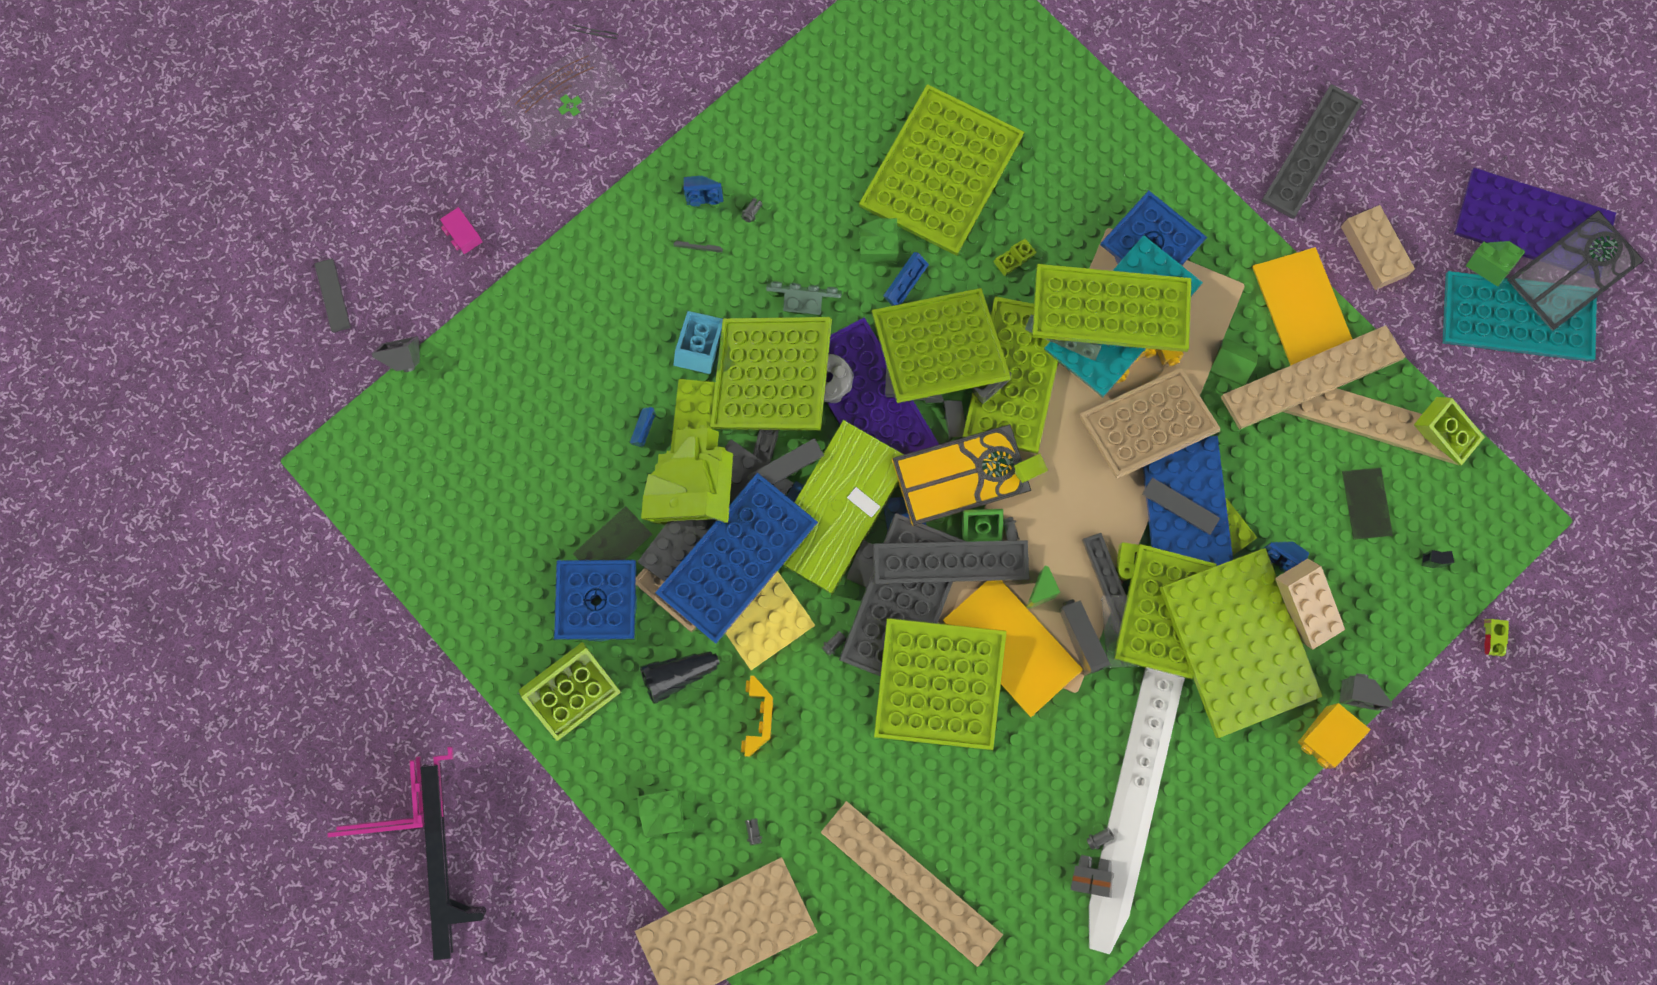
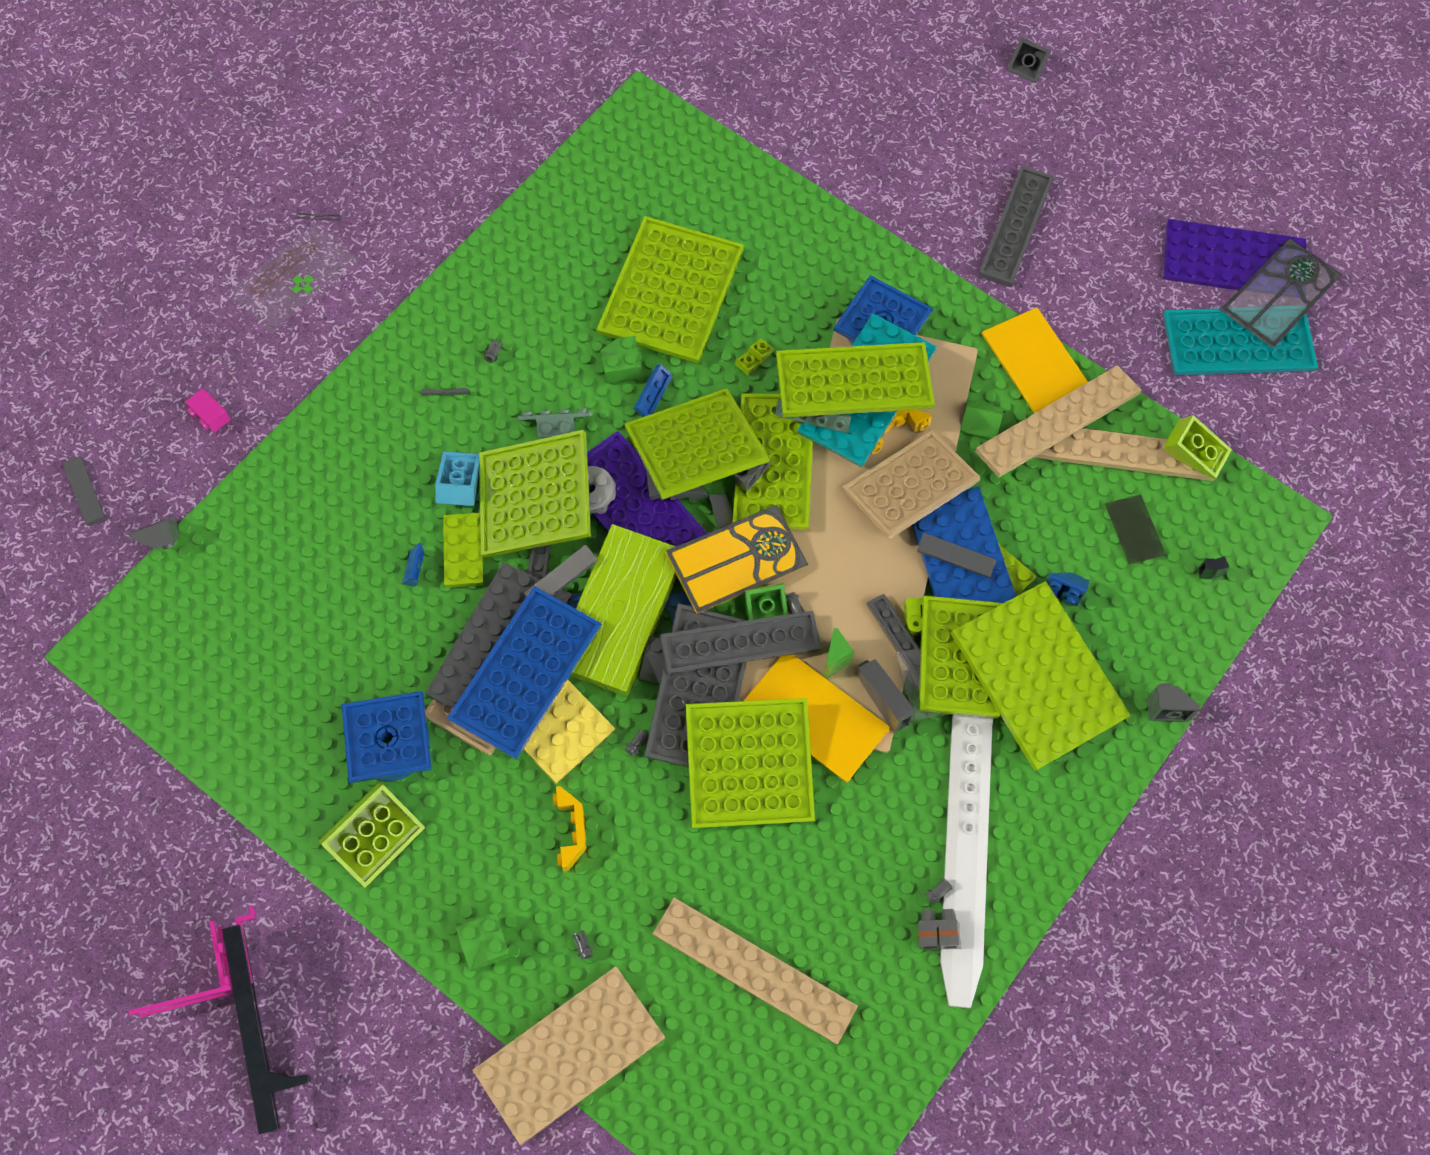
camera: 10 degrees left, 10 degrees down
(615, 539) = (400, 675): clear smoke piece -> none
(675, 674) = (479, 798): black cone -> none
(690, 480) = (467, 605): lime panel -> none
(702, 190) = (442, 339): blue slope -> none
(863, 502) = (644, 598): white sticker -> none
(1030, 468) = (803, 542): lime slope -> none
(1310, 603) = (1100, 625): tan brick -> none
(1333, 735) = (1149, 750): yellow slope -> none
(1377, 247) = (1094, 299): tan brick -> none
(1495, 260) = (1205, 294): bright green slope -> none
(1496, 636) = (1285, 632): lime leg -> none

